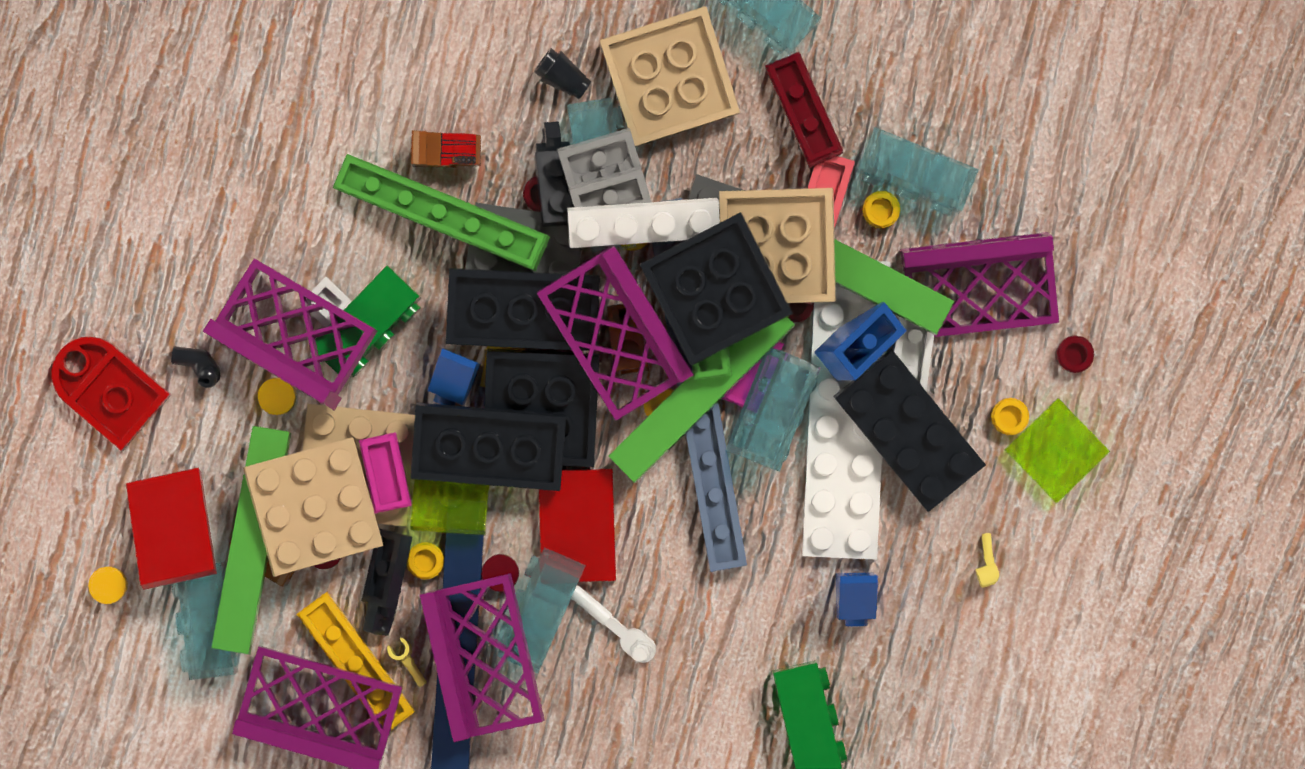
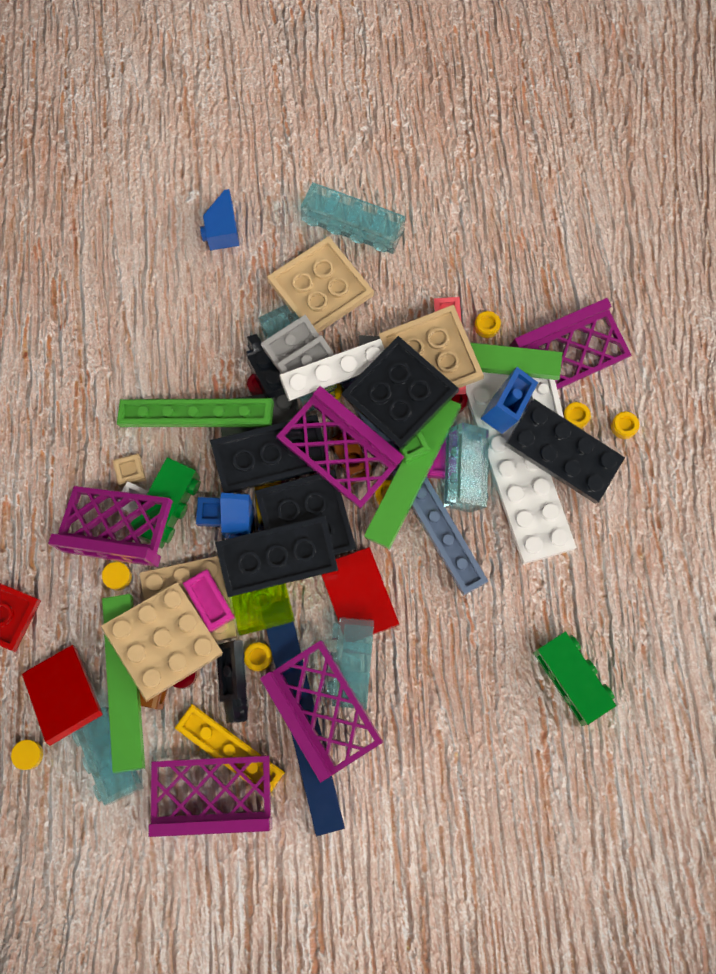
camera: 20 degrees left, 15 degrees down
(201, 363) = (55, 570): black arm -> none
(331, 257) = (129, 469): none -> tan tile
(408, 662) = (268, 736): light yellow hand -> none
(421, 353) = (208, 512): none -> blue plate
(445, 149) = (186, 375): leg -> none
(498, 566) = (310, 640): dark red tile -> none
(562, 74) = (248, 305): black cone -> none
(632, 640) = (426, 664): white piece -> none
(804, 109) = (415, 278): dark red tile -> none
(856, 597) = (574, 575): blue slope -> none
(916, 172) = (501, 291): clear light blue brick -> none
(950, 381) = (577, 414): none -> yellow tile
(987, 574) = (656, 531): light yellow hand -> none
(1056, 450) = (665, 437): clear neon green tile -> none
(1075, 354) = (650, 372): dark red tile -> none

